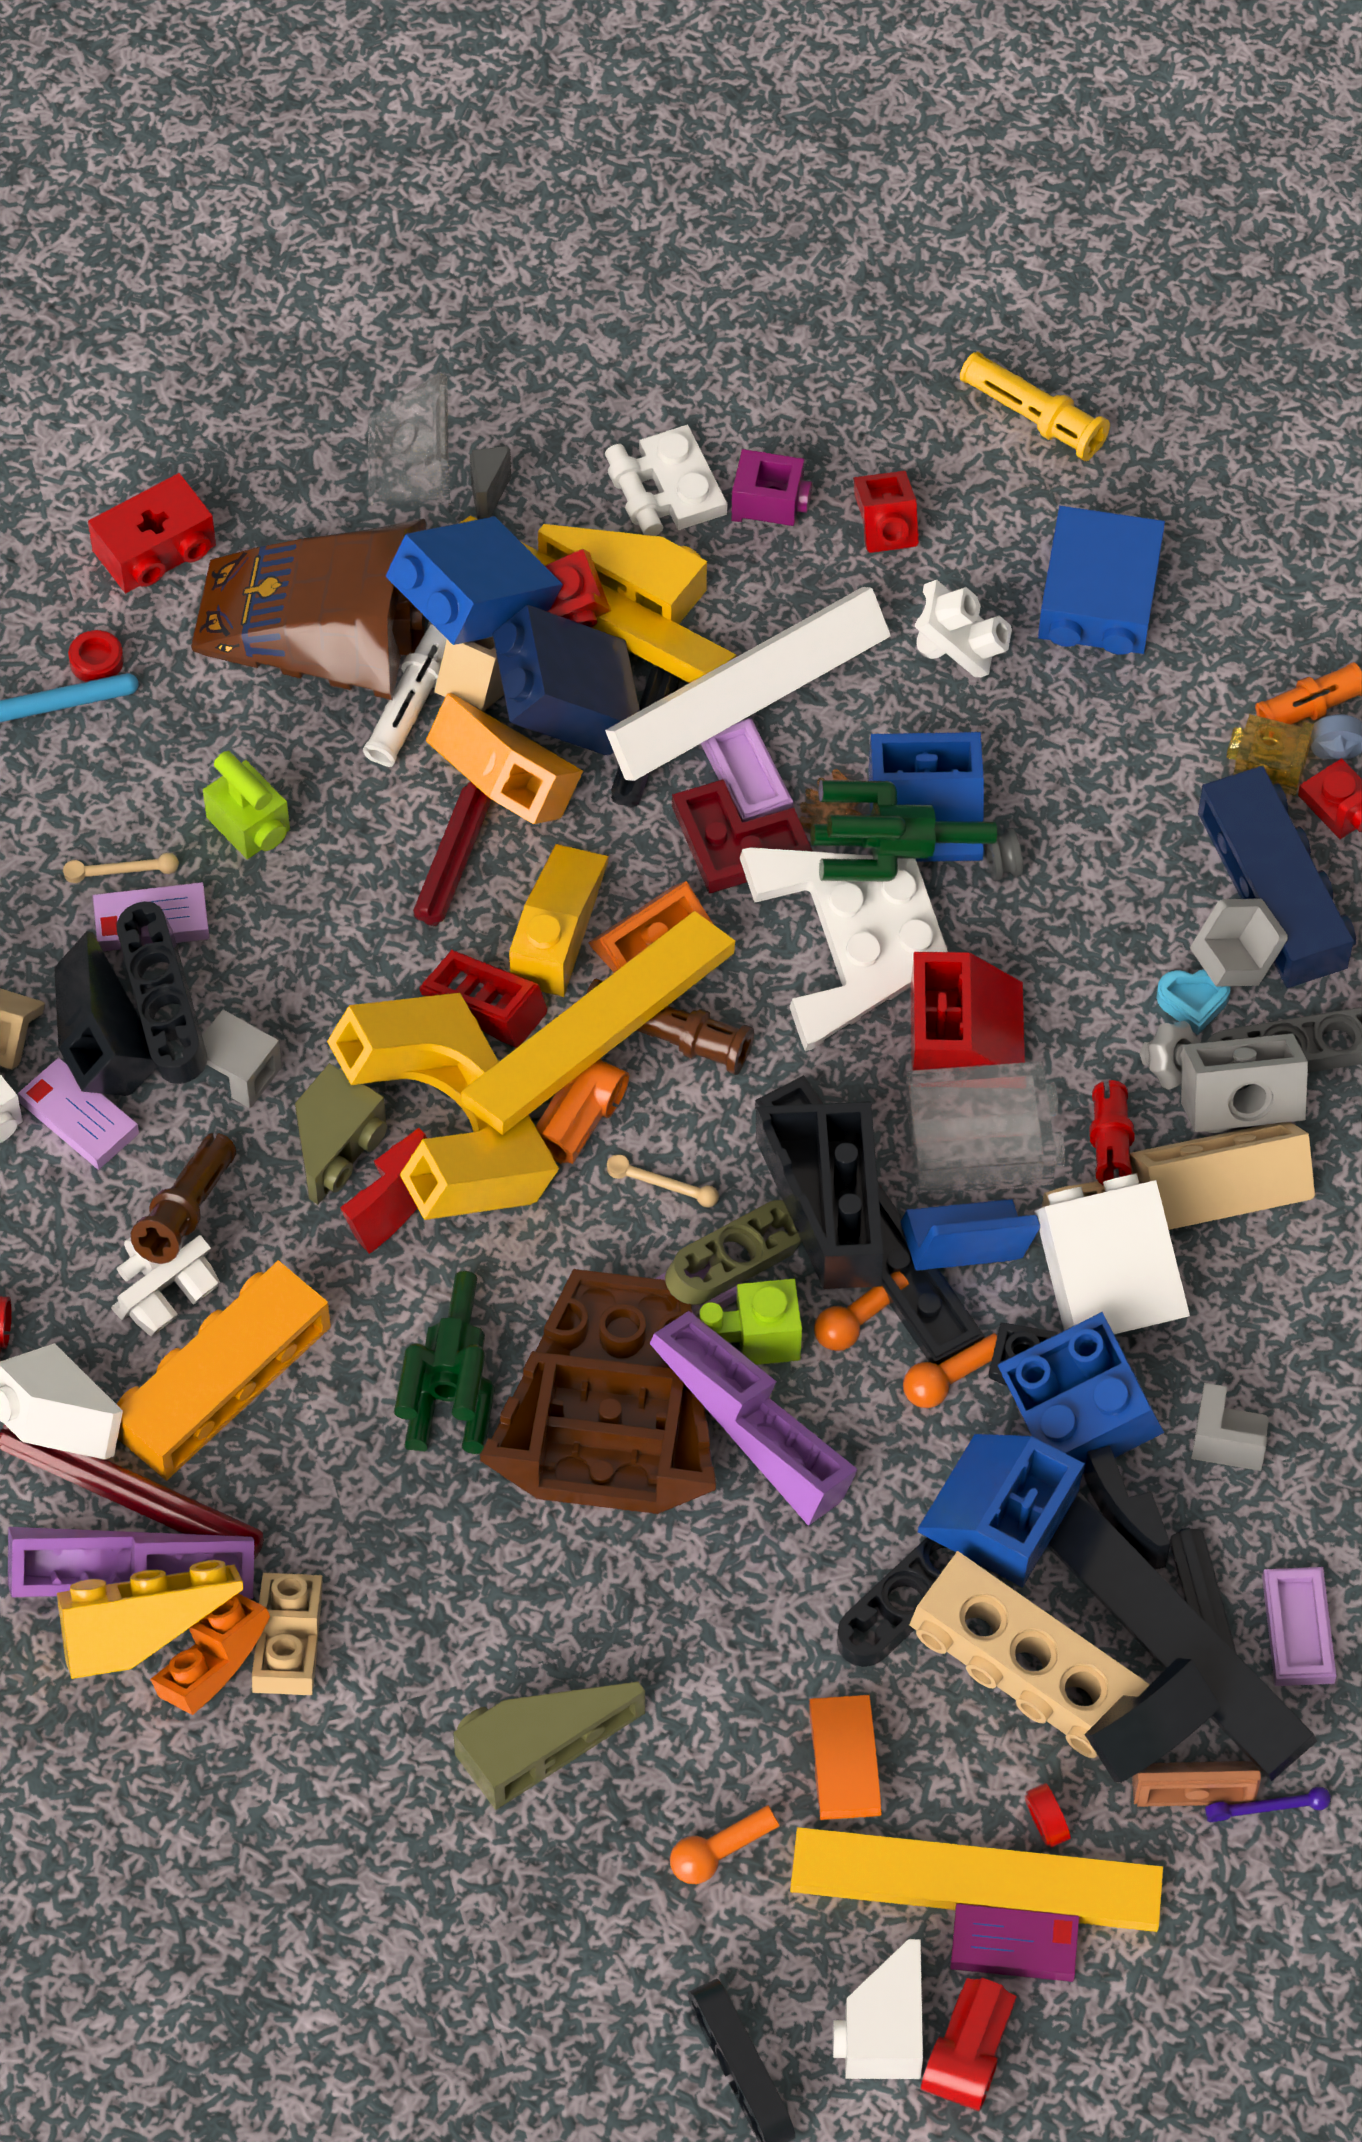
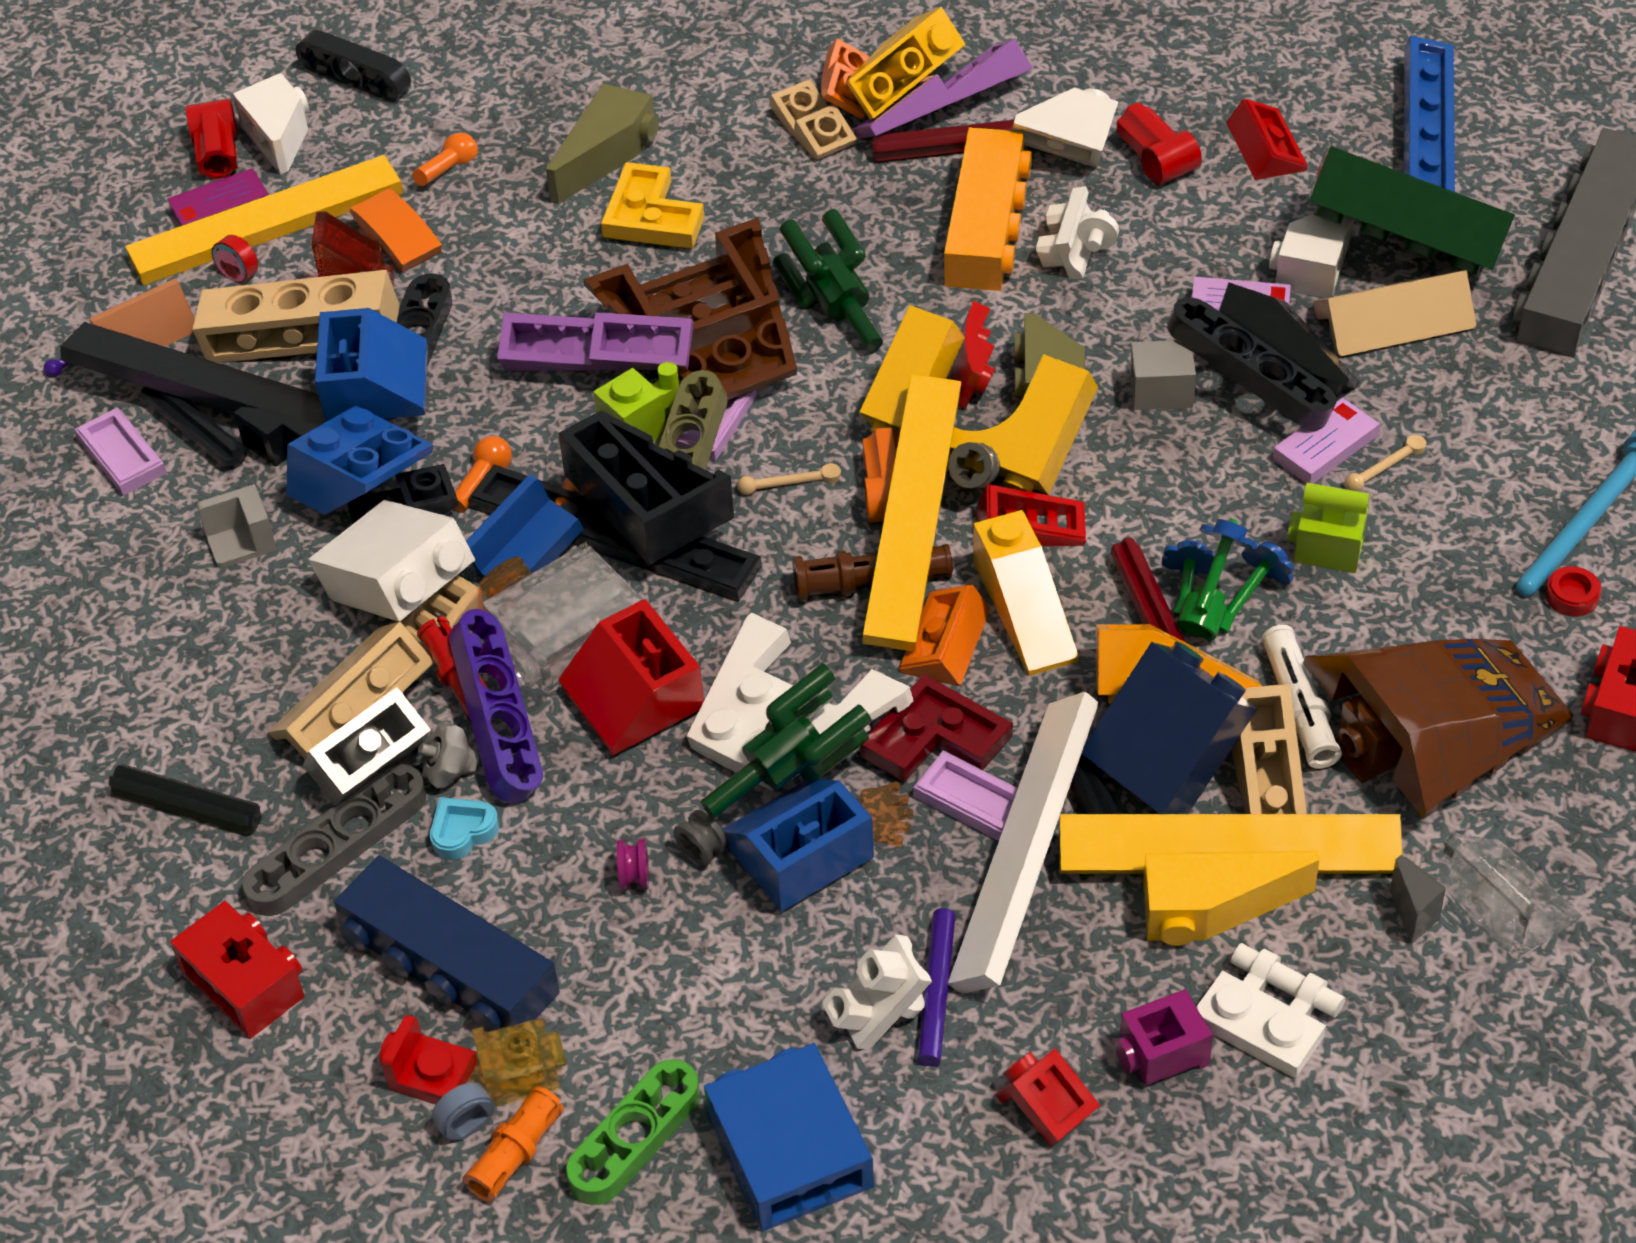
camera: 150 degrees right, 10 degrees down
(177, 1209) = (1096, 242): reddish brown pin -> none
(419, 804) = (1204, 611): none -> plant
(470, 577) = (1311, 726): blue brick -> none
(502, 1035) = (969, 450): none -> dark grey bush
(571, 1607) = (644, 215): none -> yellow plate
(582, 592) = (1227, 804): red bracket -> none
(885, 655) = (936, 993): none -> dark purple bar
(938, 1688) = (343, 249): none -> clear red slope
(1016, 1182) = (503, 576): none -> clear orange tile
(1074, 864) = (632, 864): none -> magenta bush
(1092, 1062) = (502, 705): none -> dark purple beam
(1155, 1722) = (180, 301): black slope -> none
(1222, 643) = (635, 1106): none -> bright green beam
(1239, 942) = (442, 858): light grey panel -> none

